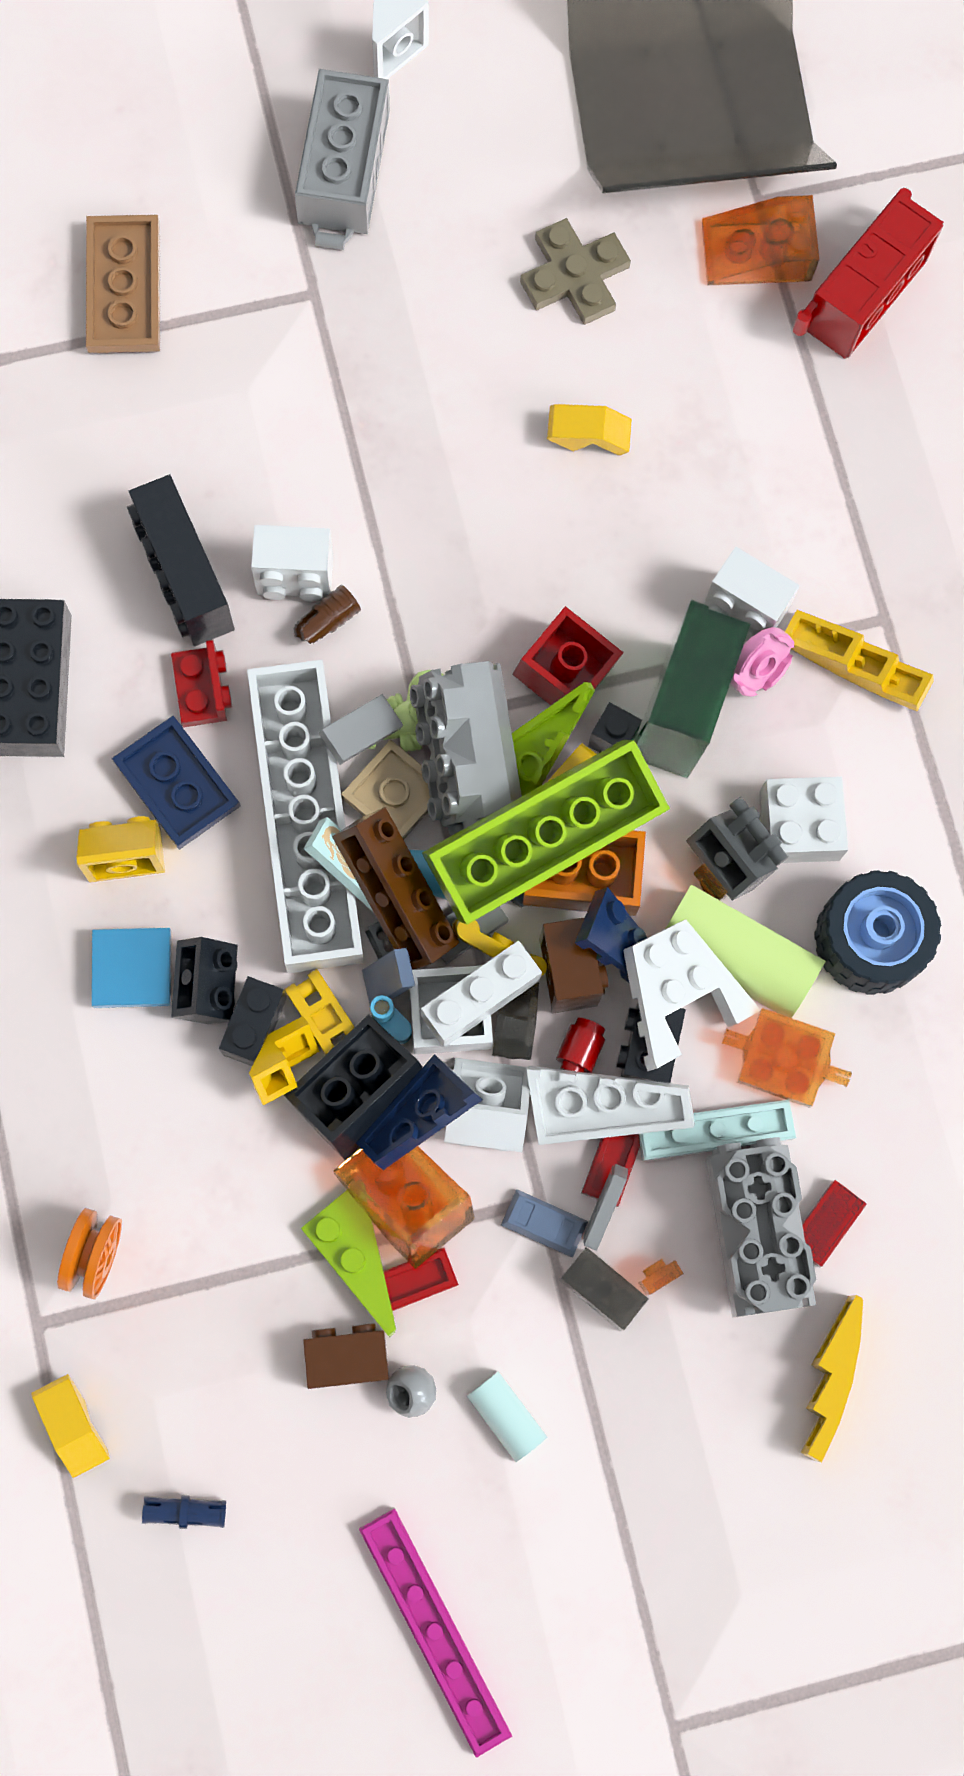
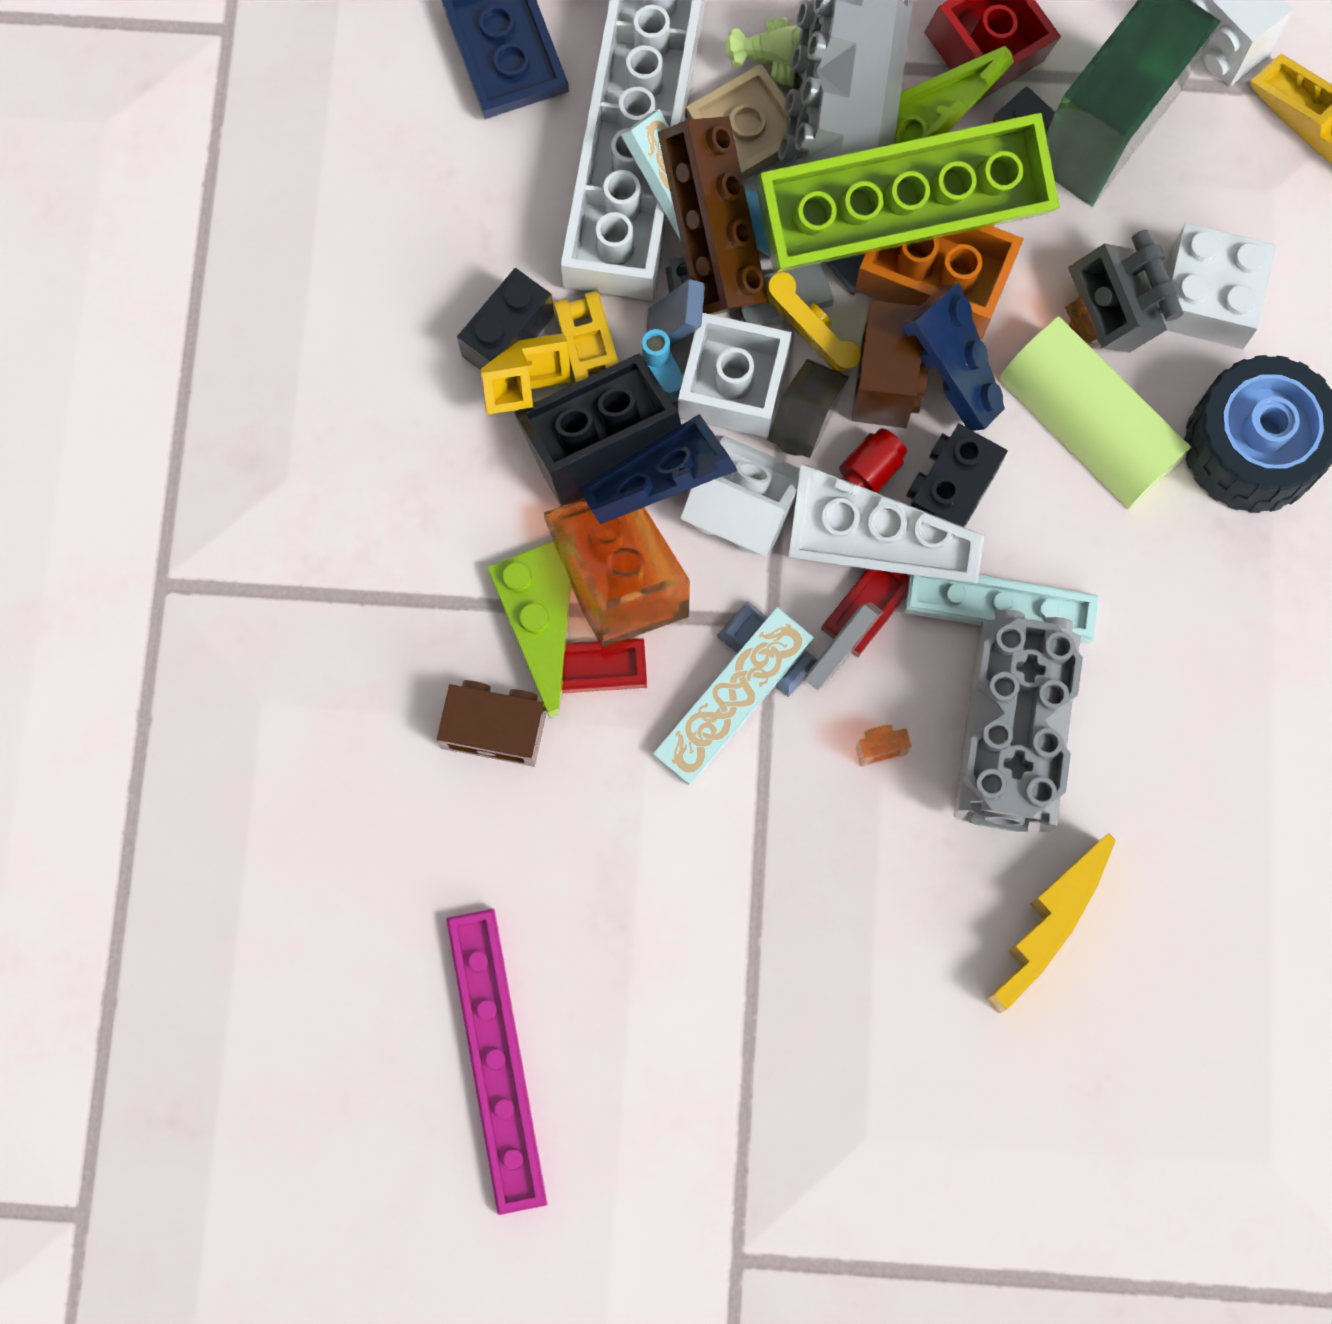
camera: 25 degrees right, 0 degrees up
(69, 1426) = (158, 703): yellow slope -> none
(89, 1253) = (240, 516): orange wheel -> none
(120, 849) = (418, 98): yellow slope -> none
(131, 967) = (389, 228): dark azure tile -> none
(184, 1511) = (256, 835): dark blue pin -> none
(204, 980) = (466, 261): black brick -> none
(361, 729) = (729, 34): light grey tile -> none
(411, 1391) = (554, 782): light grey piece -> none
(481, 994) = (773, 355): white brick -> none
(507, 1416) = (655, 847): light aqua brick -> none
(530, 1274) = (734, 696): none -> tile
(603, 1289) = (812, 737): clear smoke brick -> none
(672, 972) = (1008, 402): white wing -> none
(762, 661) = (1220, 92): bright pink tile -> none
(786, 1057) = (1110, 547): clear orange plate -> none
(830, 1220) = (1105, 747): red tile -> none

